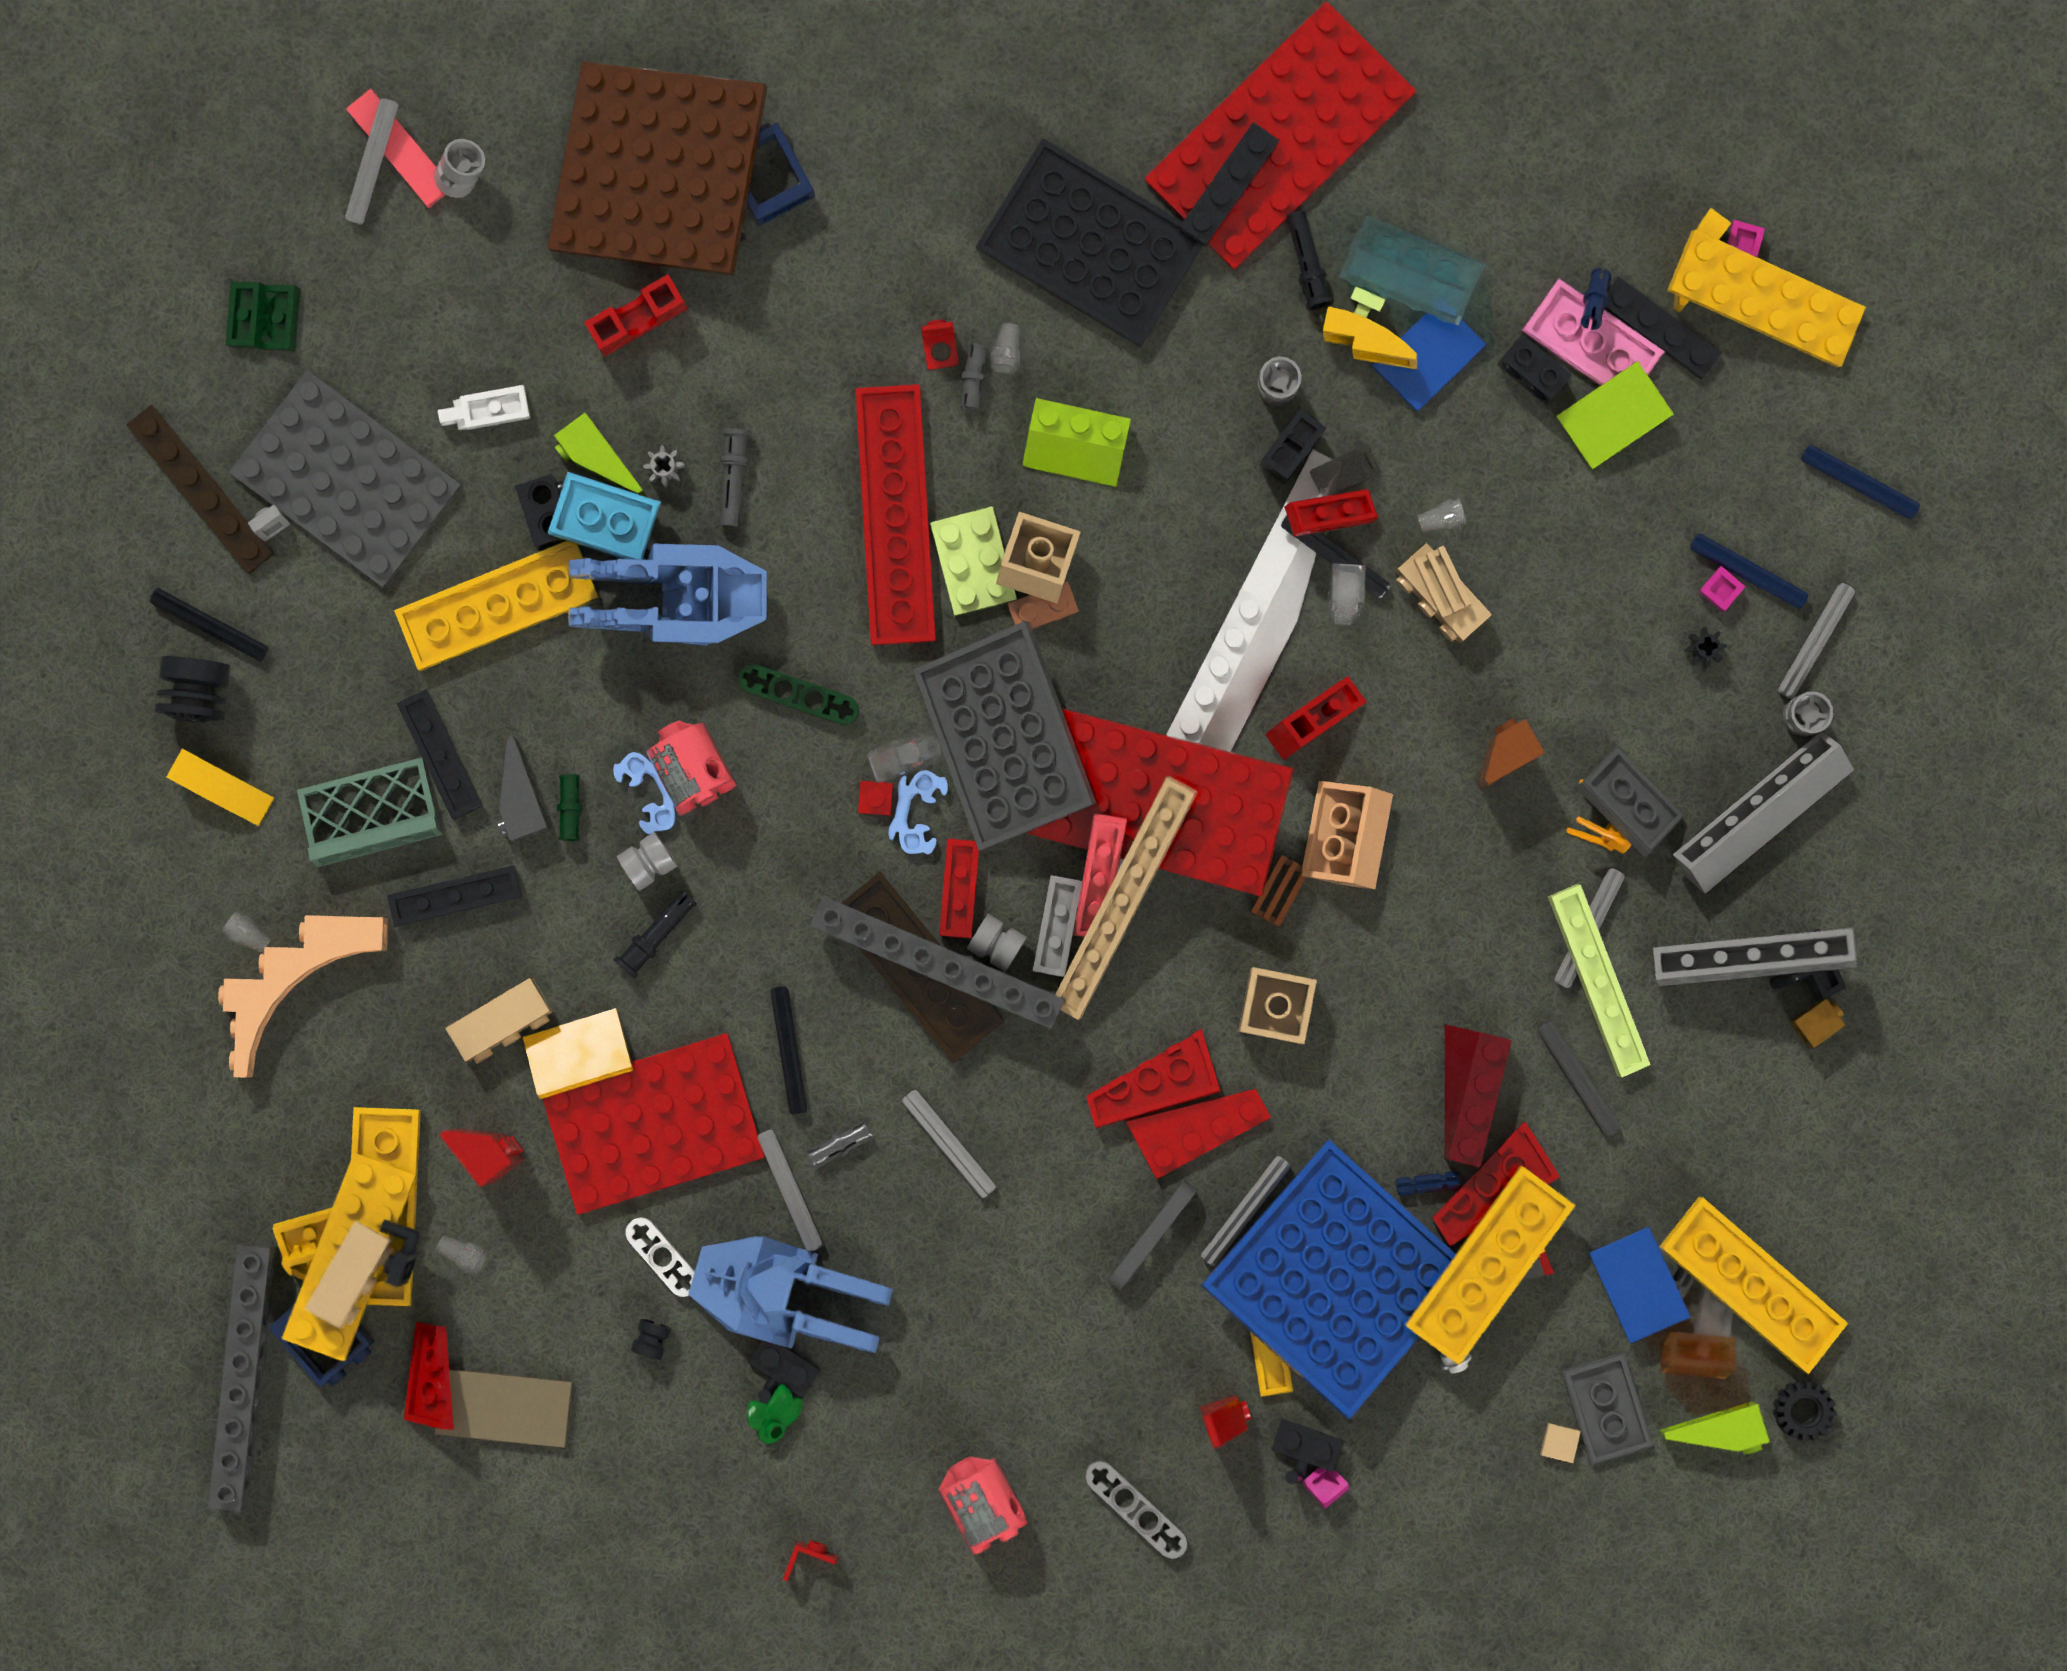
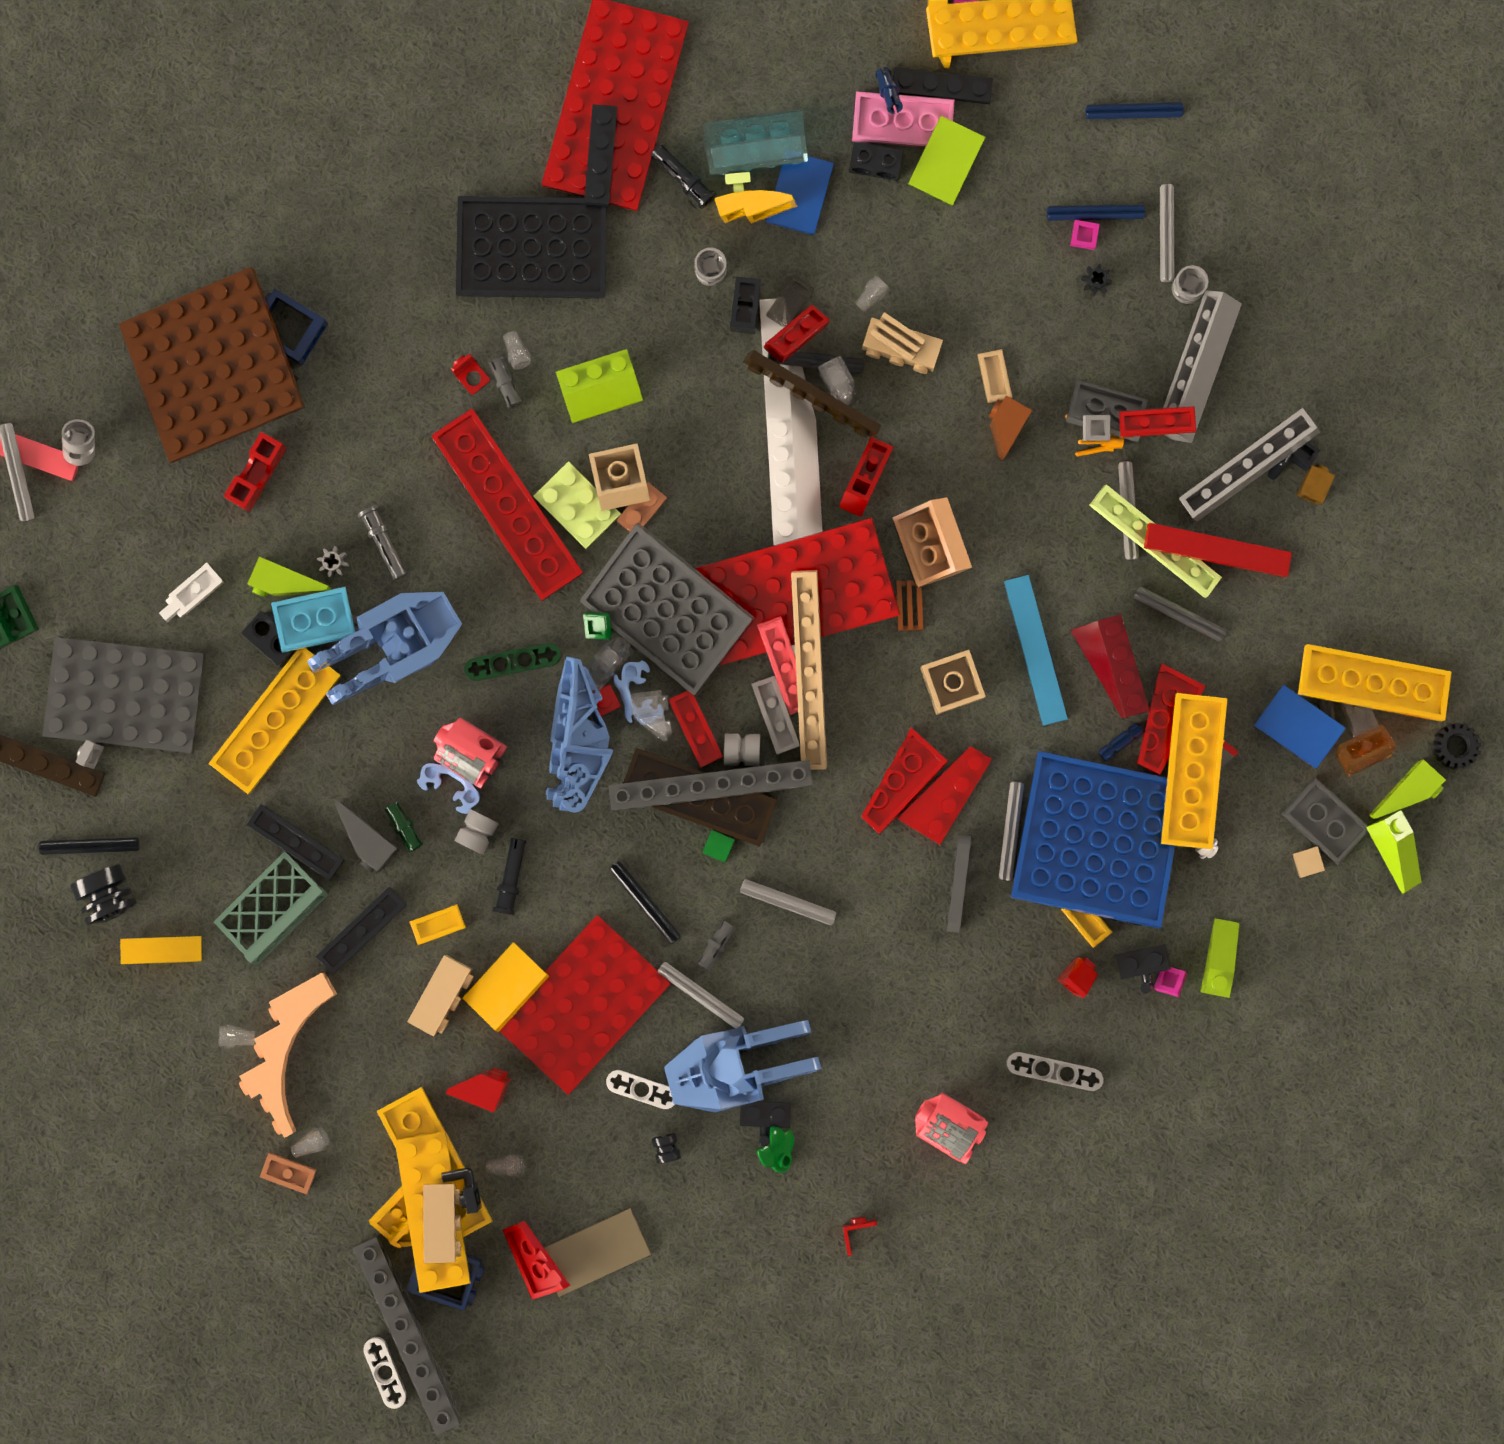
camera: 30 degrees left, 0 degrees up
(196, 1429) = (399, 1387): none -> white beam
(215, 1119) = (288, 1173): none -> nougat plate
(261, 1100) = (310, 1143): none -> clear cone
(543, 939) = (437, 924): none -> yellow tile
(817, 828) = (577, 742): none -> medium blue connector
(907, 1035) = (718, 846): none -> green tile
(916, 709) = (597, 625): none -> green tile
(917, 842) = (649, 712): none -> clear slope
(1301, 579) = (803, 390): none -> dark brown plate
(1392, 1024) = (1035, 650): none -> dark azure tile
(1397, 1493) = (1221, 958): none -> lime slope
(1527, 688) = (994, 375): none -> tan tile
(1606, 814) = (1096, 427): none -> light grey plate
(1663, 1031) = (1217, 550): none -> red tile
(1670, 1485) = (1398, 849): none -> slope
(1679, 848) = (1157, 422): none -> red tile

